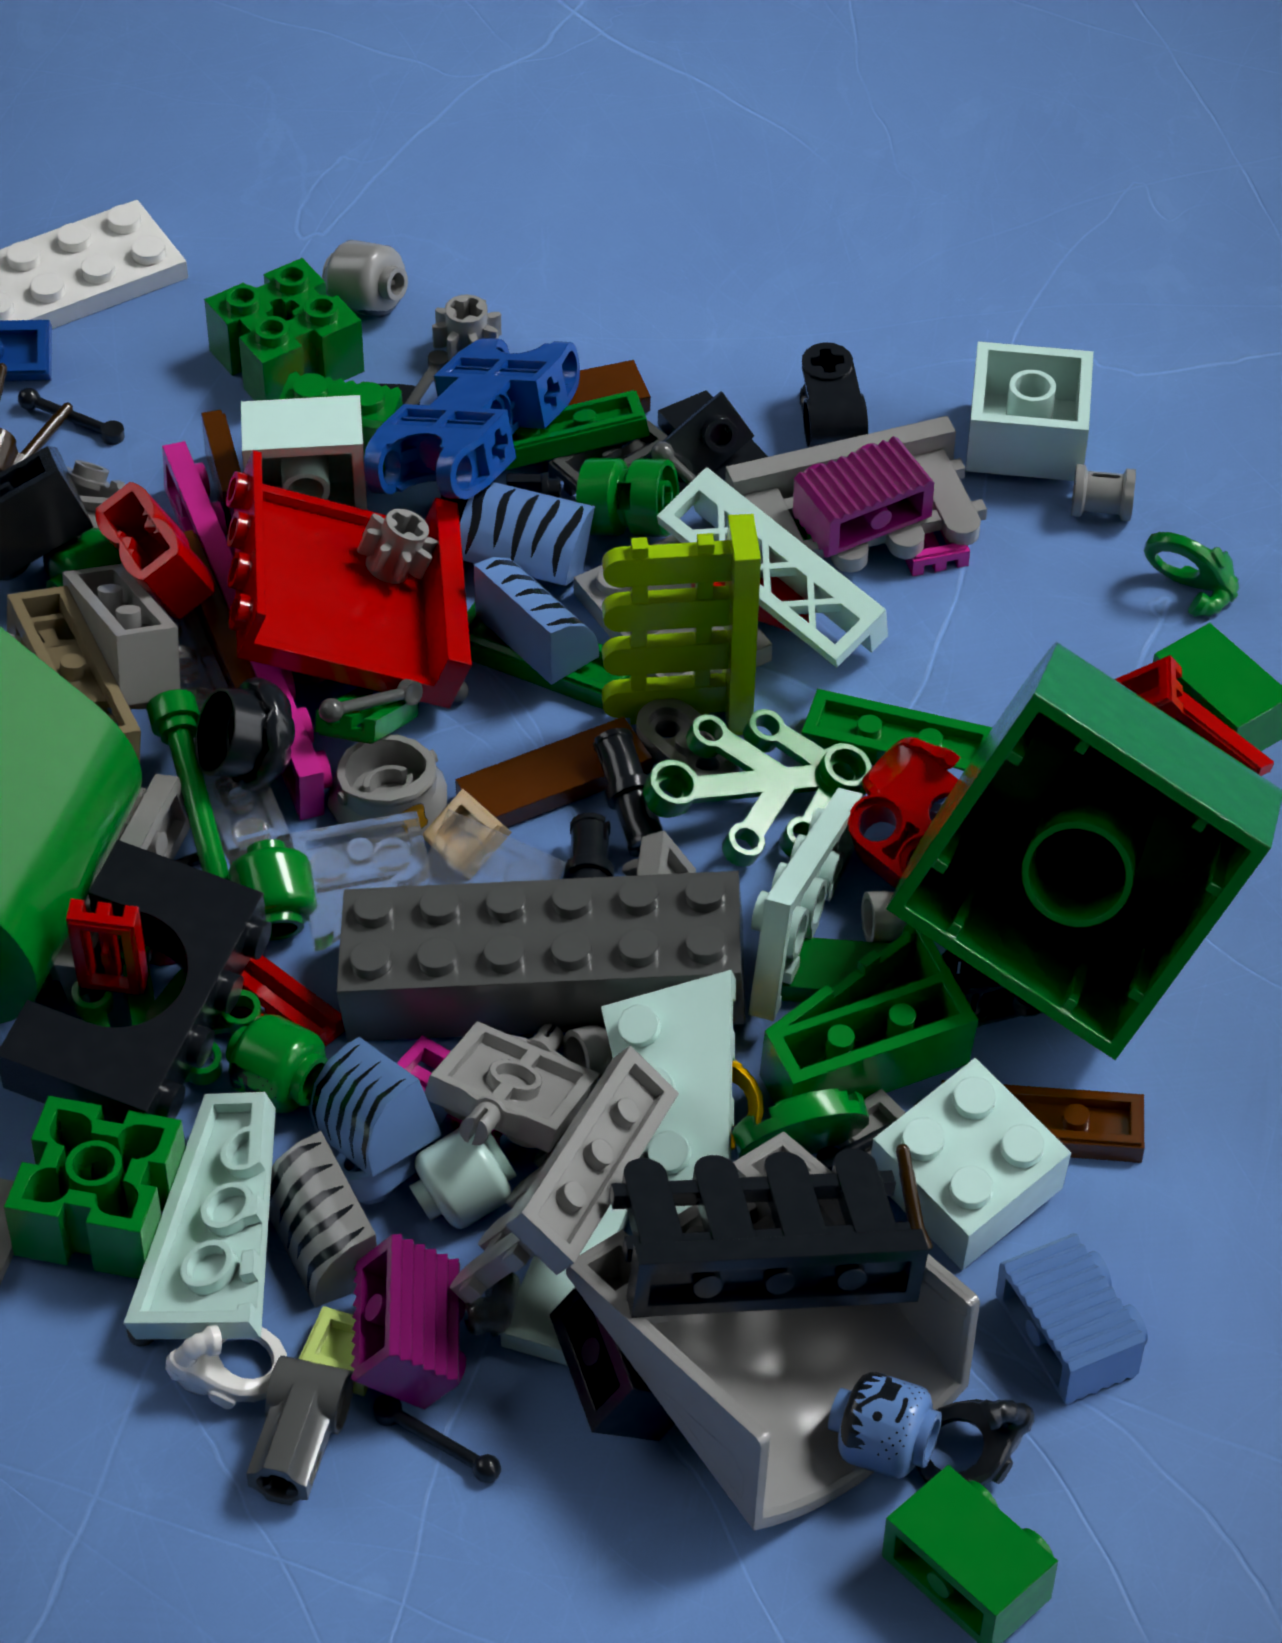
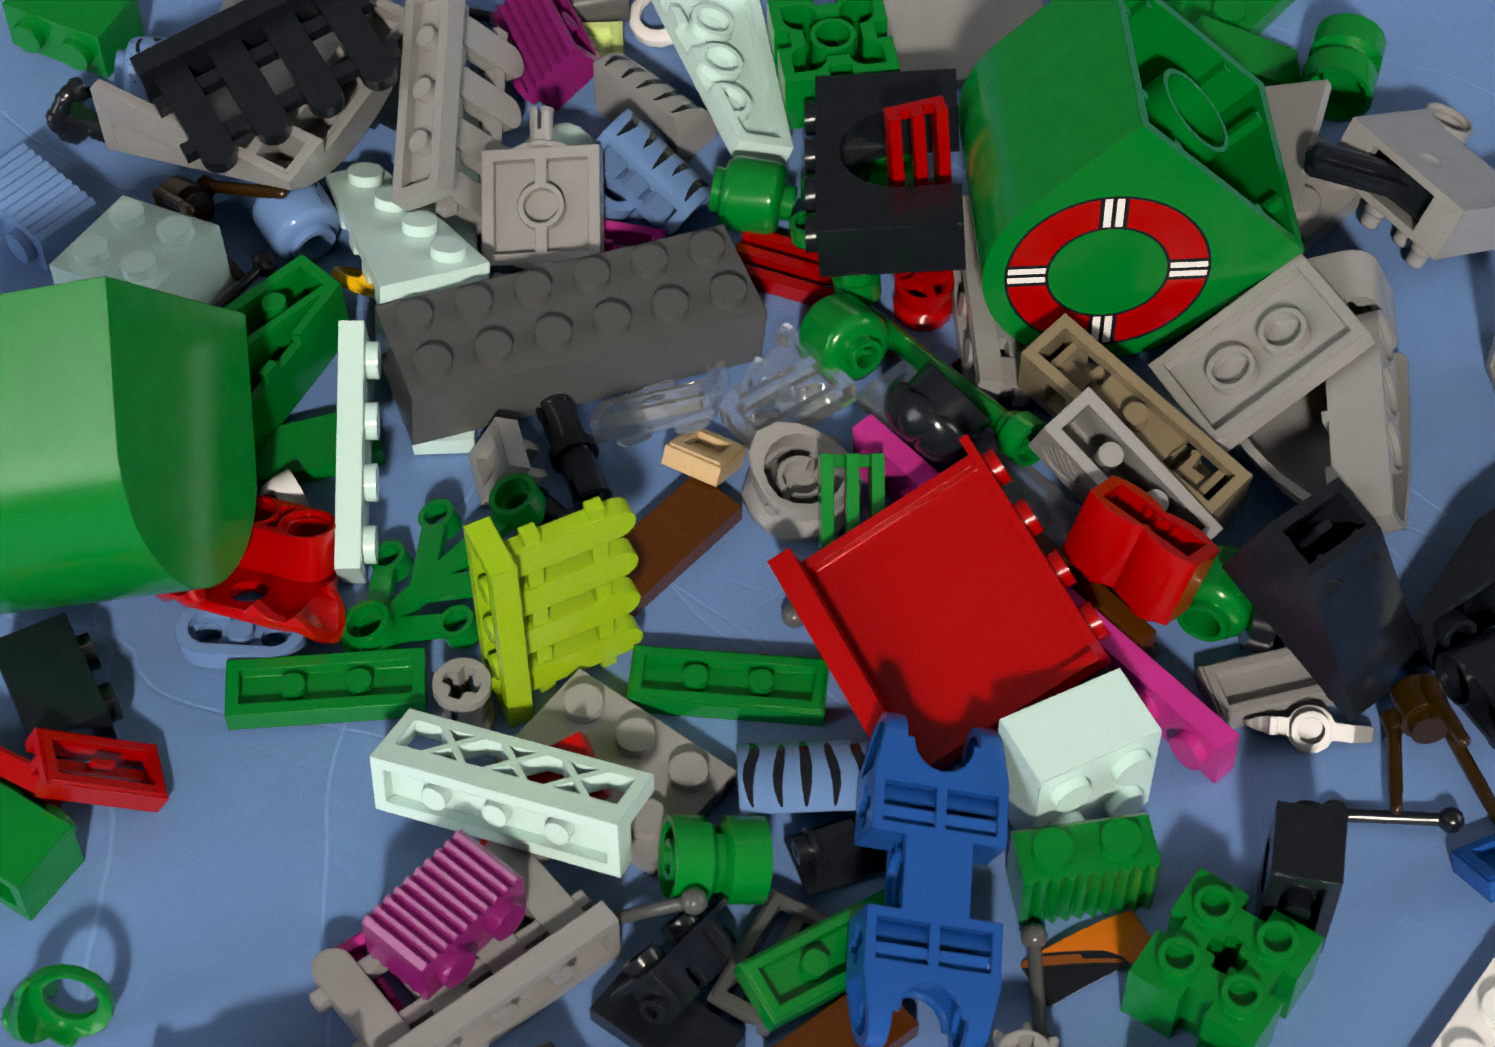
camera: 160 degrees right, 5 degrees up
(189, 348) = (1303, 864): none -> black brick
(219, 455) = (1187, 786): reddish brown tile -> none
(397, 546) = (906, 666): light grey gear -> none
(407, 692) = (864, 442): dark grey hinge -> none
(531, 620) = (740, 663): medium blue brick -> none
(781, 686) = (454, 692): none -> light grey bush
(811, 1119) = (282, 229): green tile -> none

